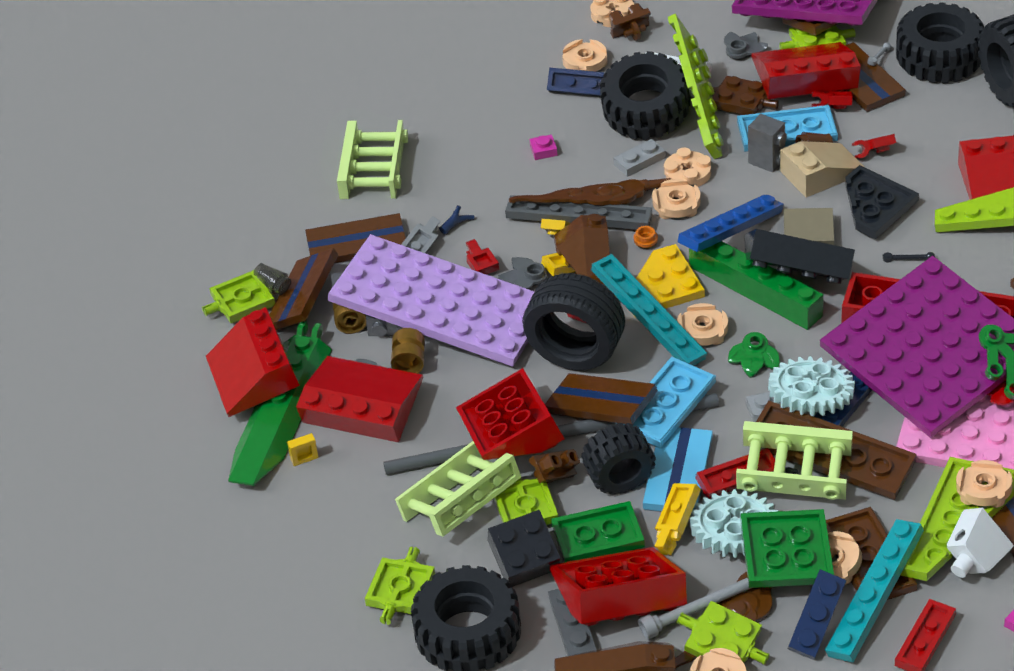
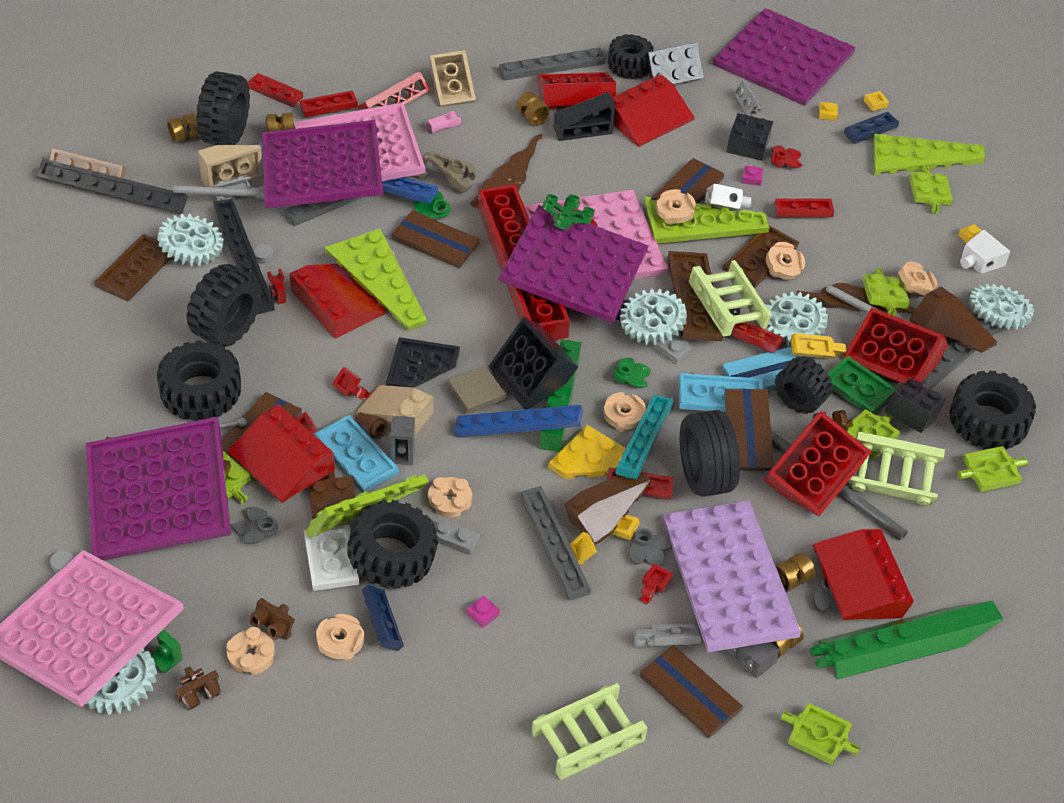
camera: 130 degrees left, 5 degrees up
(251, 364) = (895, 665): red slope -> none
(273, 279) = (797, 704): clear smoke cone -> none
(302, 449) = (935, 590): yellow plate -> none
(306, 283) = (785, 685): reddish brown tile -> none
(454, 220) = (617, 629): dark blue bar -> none
(597, 194) = (526, 534): reddish brown piece -> none
(645, 237) = (552, 486): orange plate -> none
(685, 205) = (494, 495): light nougat plate -> none
(785, 547) = (806, 273): green plate -> none
(816, 614) = (837, 248): dark blue plate -> none
(874, 590) = (793, 233): teal plate -> none
(888, 257) = (473, 339): black hinge -> none

